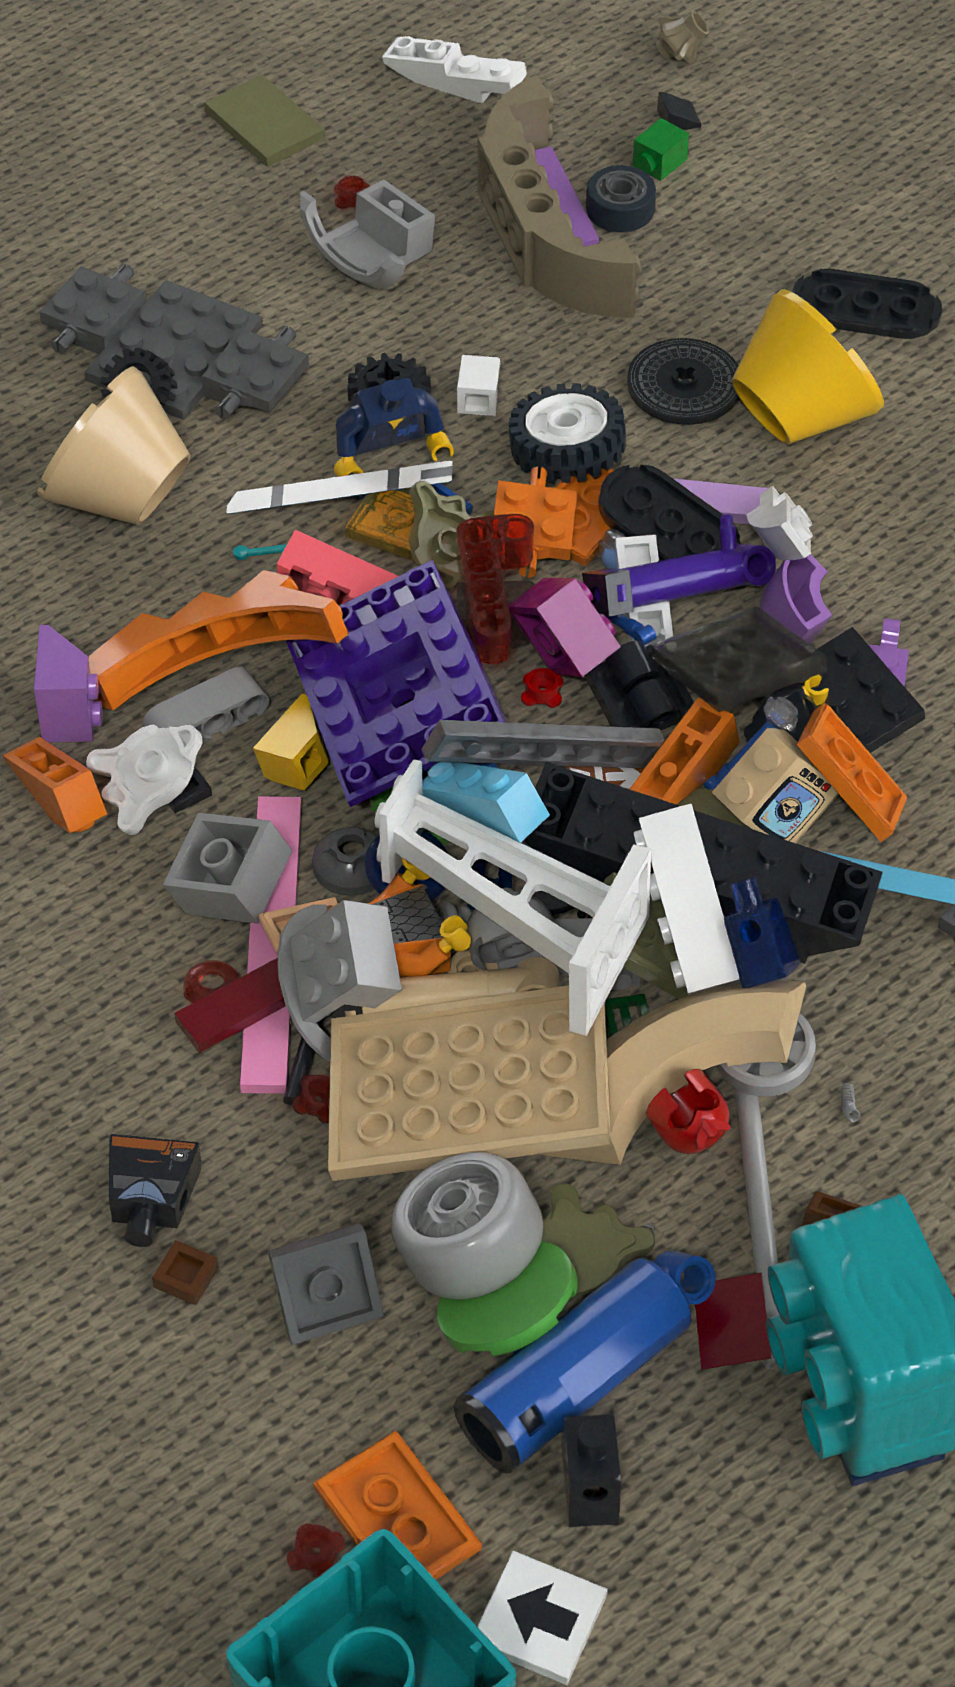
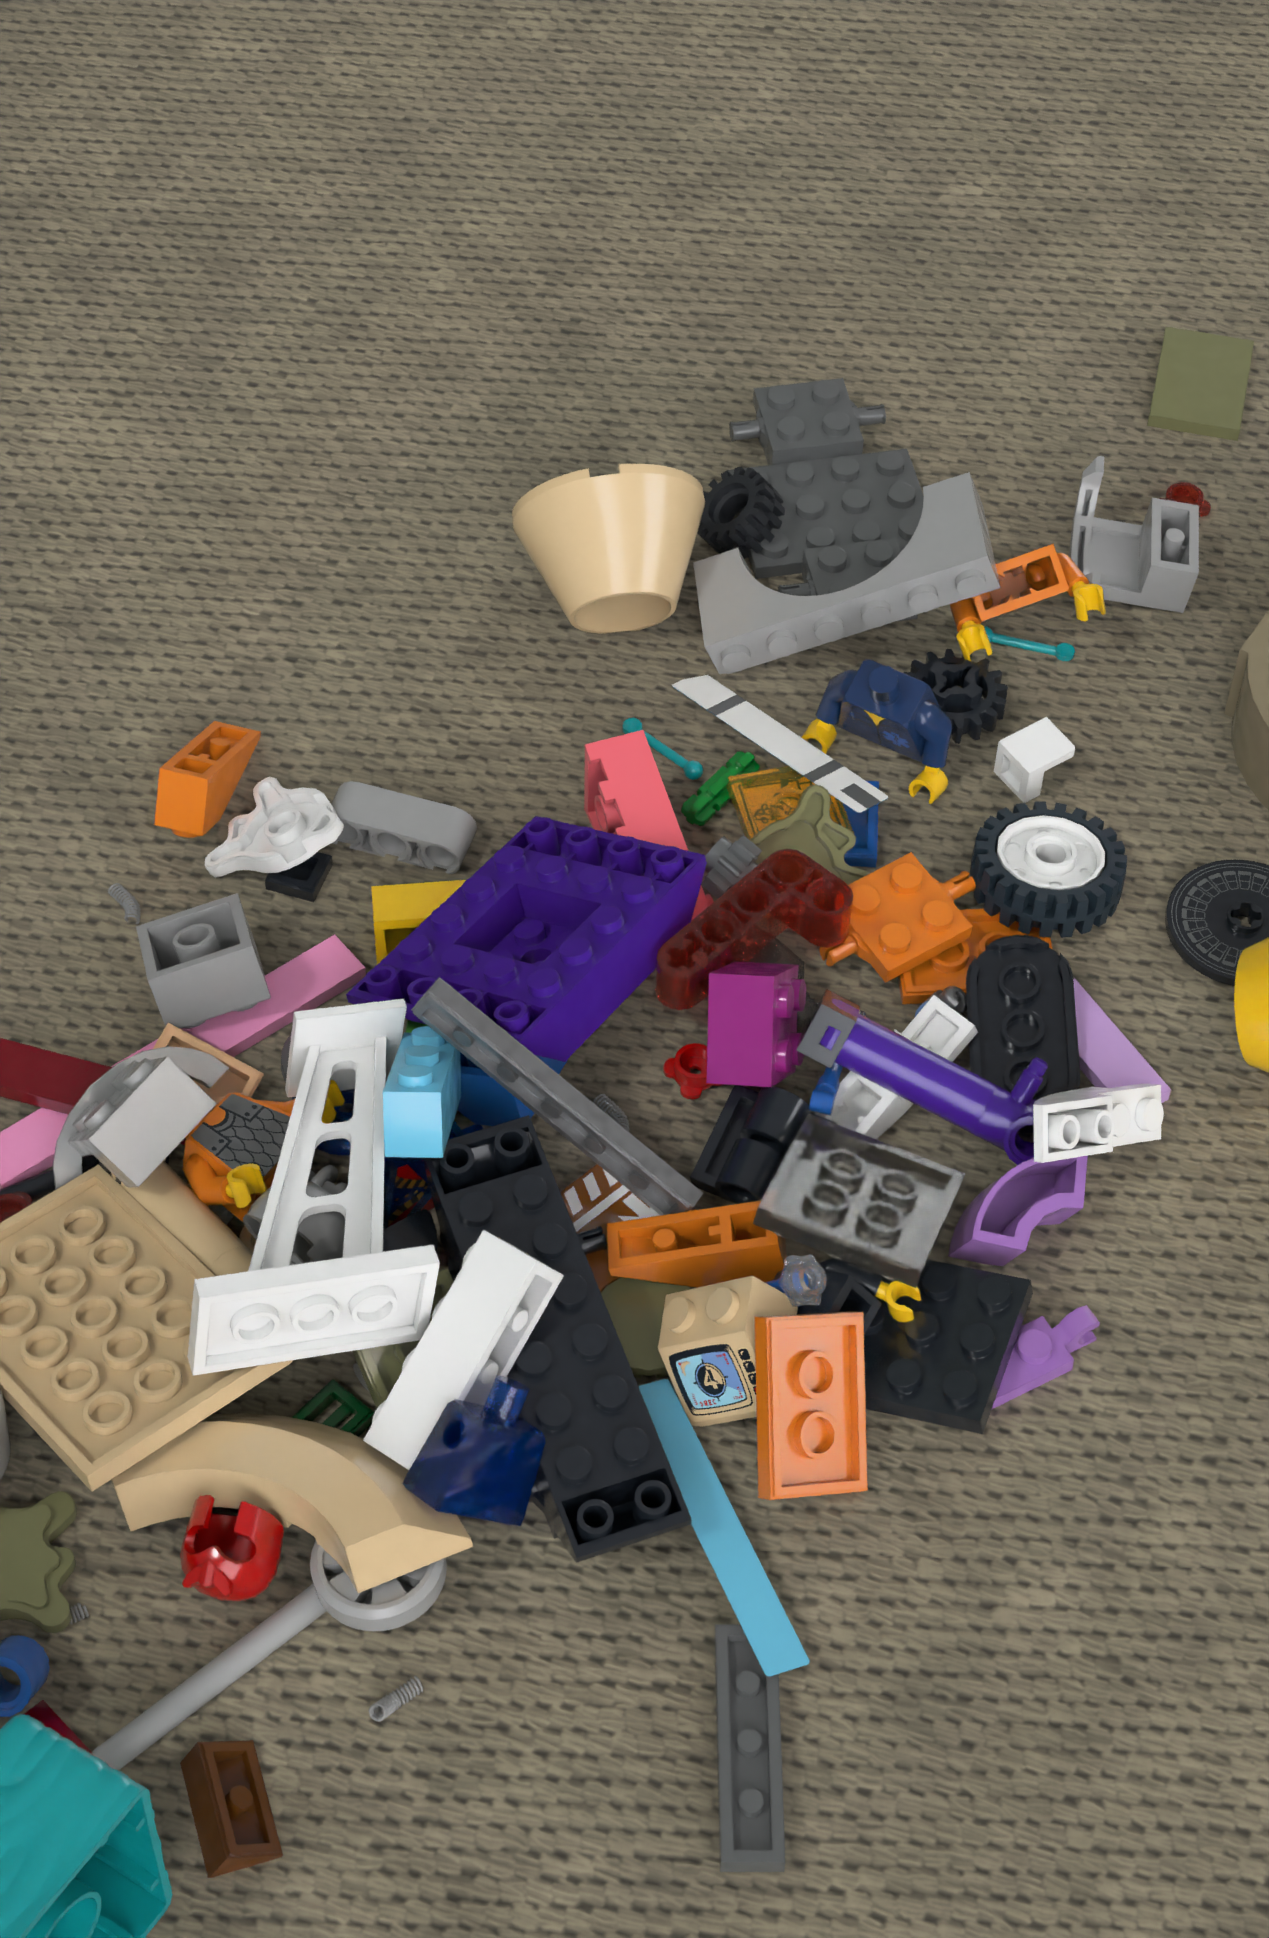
camera: 50 degrees right, 0 degrees up
(65, 690) = (302, 701): medium lavender slope -> none
(123, 890) = (125, 904): none -> light grey leg
(194, 990) = (107, 1044): clear red piece -> none
(211, 624) = (429, 736): orange arch -> none
(239, 435) = (940, 565): none -> light grey arch
(335, 525) = (714, 791): none -> green axle
(354, 298) = (1024, 583): none -> orange torso
(402, 321) = (1063, 651): none -> teal hinge
(444, 557) = (729, 864): none -> dark grey gear

